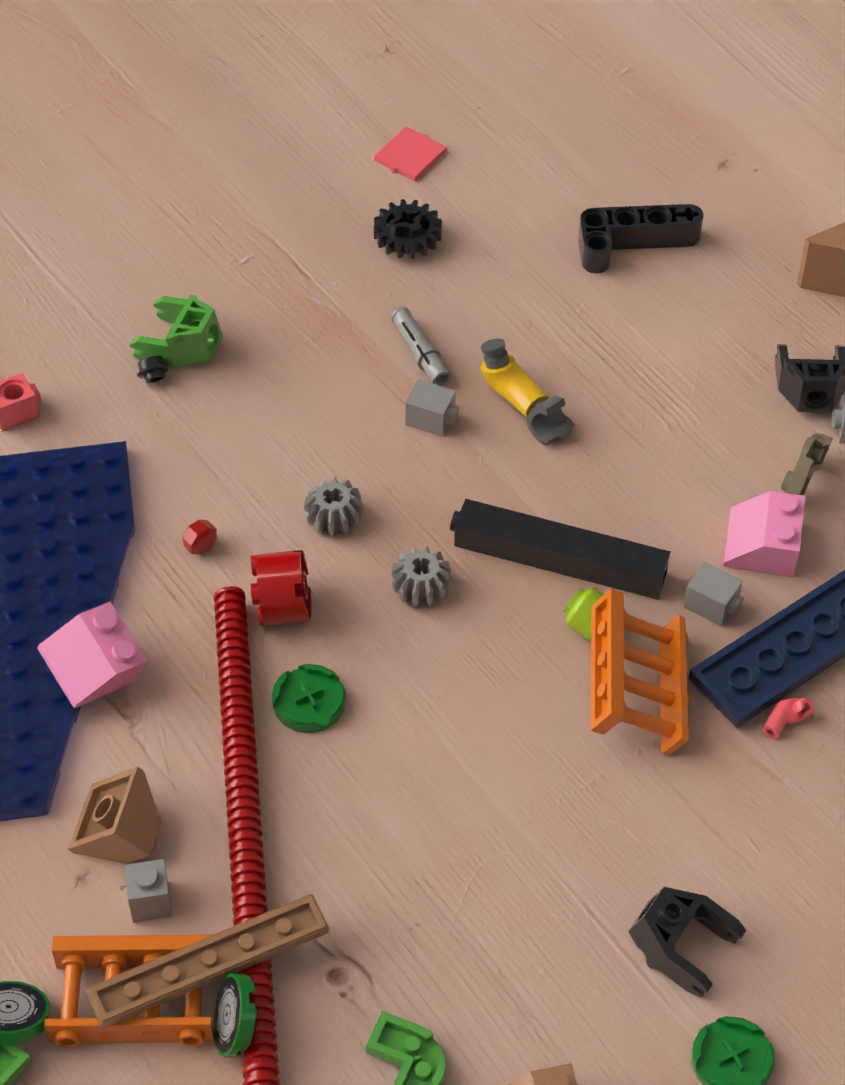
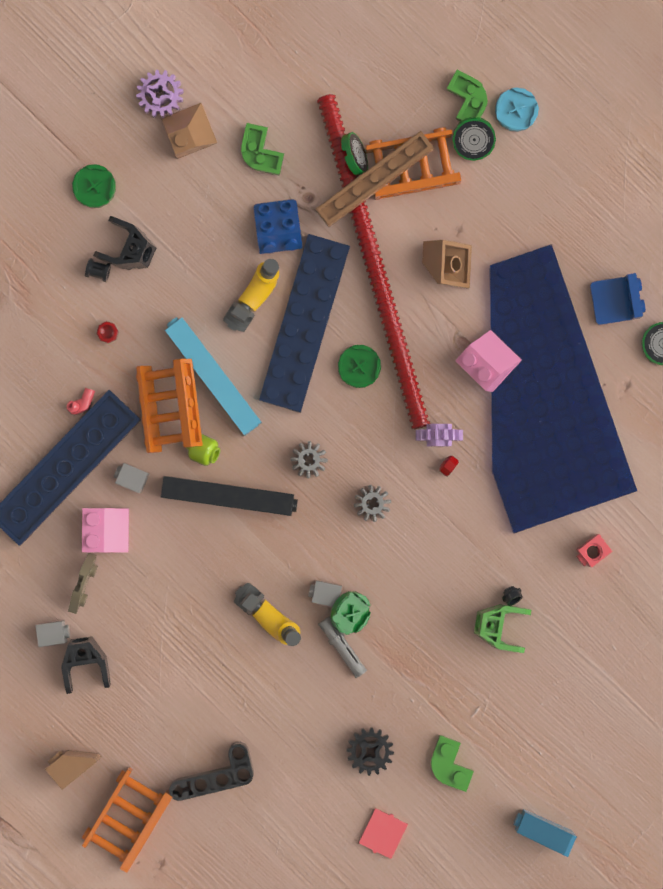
camera: 165 degrees right, 35 degrees up
(148, 890) = (419, 221): light grey brick -> none
(186, 111) = (545, 832): none -> dark azure slope
(202, 564) = (439, 435): none -> lavender gear
(281, 588) = (389, 429): red brick -> none
(304, 203) = (444, 766): none -> bright green plate
(384, 780) = (304, 323): none -> dark blue plate
(399, 376) = (350, 612): none -> tile
(402, 931) = (277, 226): none -> blue bracket
(458, 830) = (254, 295): none -> piece
(559, 716) = (212, 375): none -> medium azure brick
(732, 810) = (107, 332): none -> red tile
(742, 907) = (97, 270): none -> black bush
(753, 182) = (137, 838): none -> orange fence

